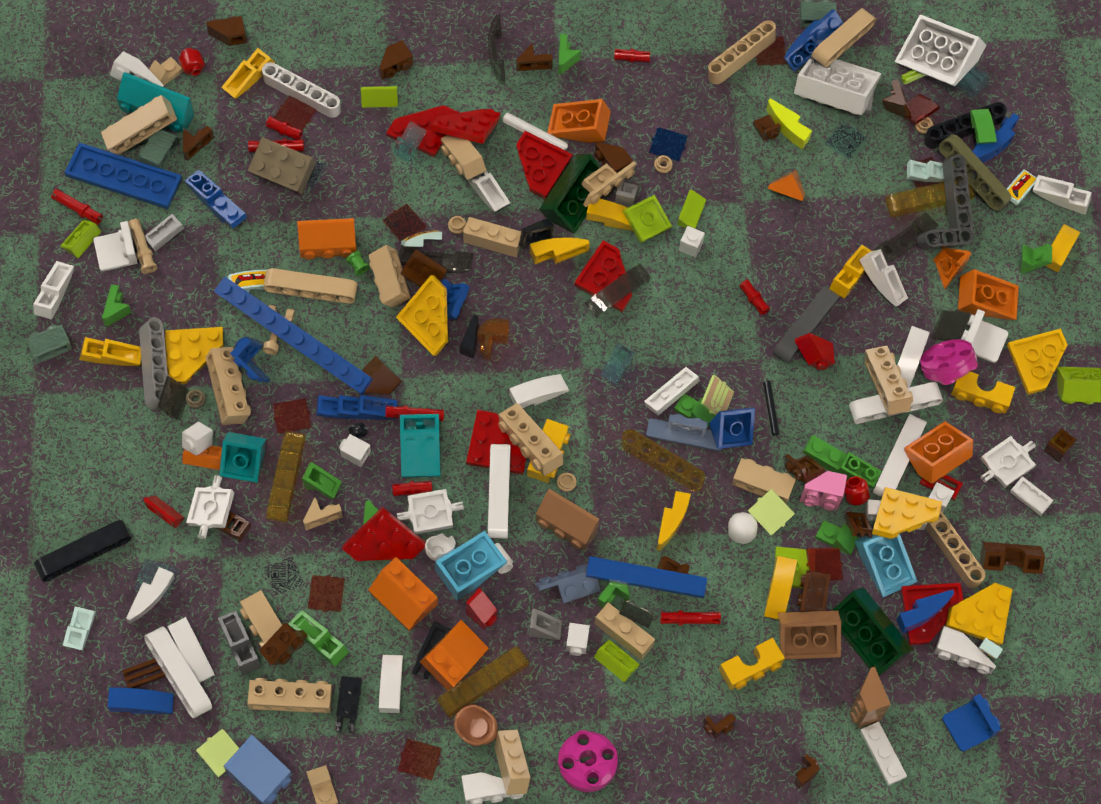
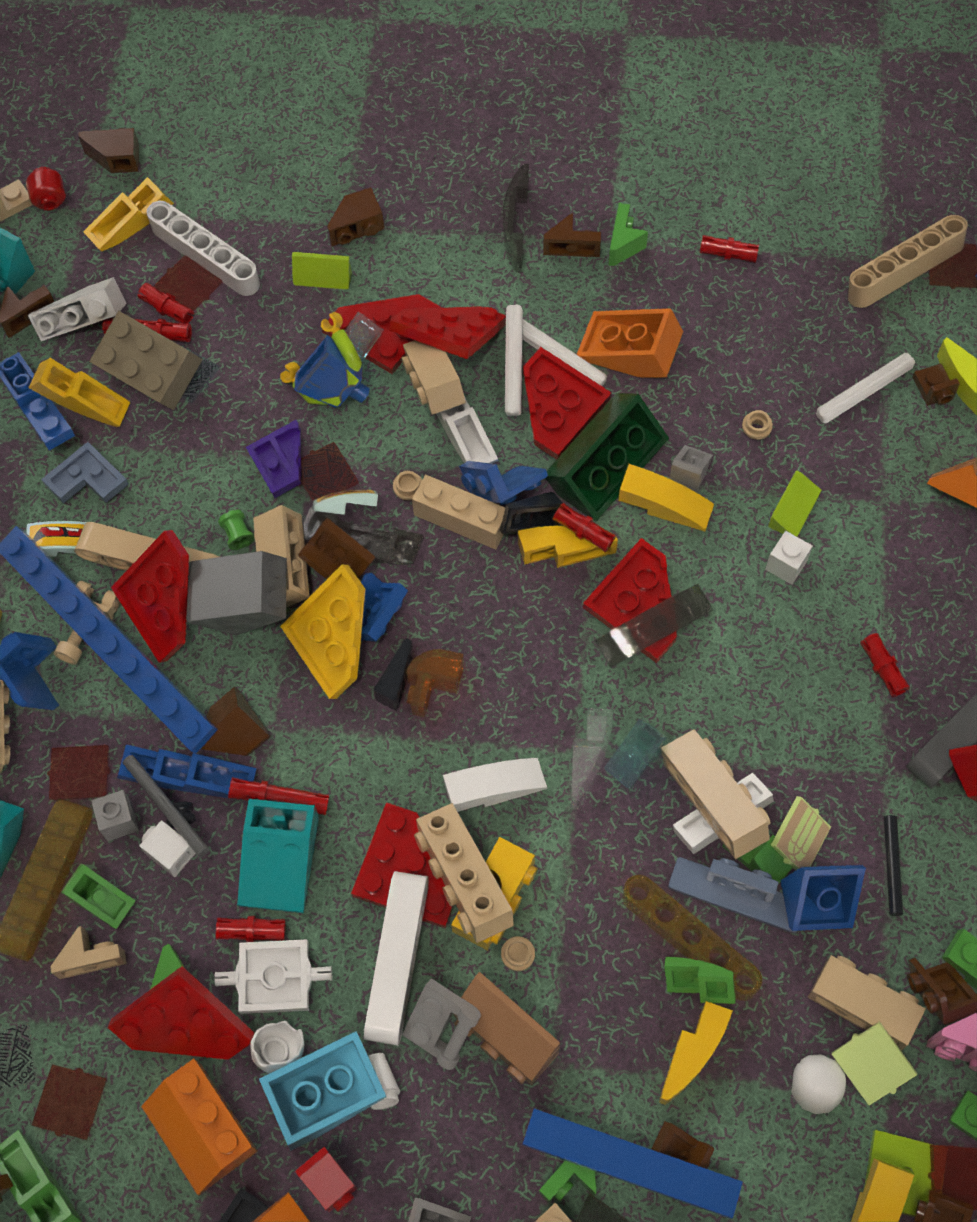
camera: 15 degrees right, 0 degrees up
(231, 138) = (78, 309): none -> white slope
(243, 190) = (79, 393): none -> yellow slope
(256, 237) = (82, 469): none -> sand blue plate
(320, 306) = (156, 595): none -> red plate
(320, 435) = (115, 815): none -> light grey brick
(326, 238) = (191, 482): orange slope -> none
(350, 425) = (166, 806): none -> dark grey bar
(370, 299) = (237, 592): none -> dark grey slope
(375, 217) = (279, 458): none -> dark purple wing
(399, 160) = (330, 371): none -> torso
(509, 140) = (513, 360): none -> white axle
(512, 218) = (488, 483): none -> blue bracket
(524, 520) = (431, 1018): none -> light grey plate
(569, 237) = (584, 527): none -> red pin
(571, 584) = (497, 1147): sand blue bracket -> none
(591, 367) = (590, 754): none -> clear slope
(604, 180) = (655, 440): tan bracket -> none
(613, 155) = (678, 408): reddish brown slope -> none
(647, 218) = (719, 511): lime plate -> none
(666, 378) = (716, 793): none -> tan brick
(668, 143) = (769, 393): clear blue piece -> none
(670, 479) = (696, 976): none -> bright green slope
(725, 134) = (865, 388): none -> white axle

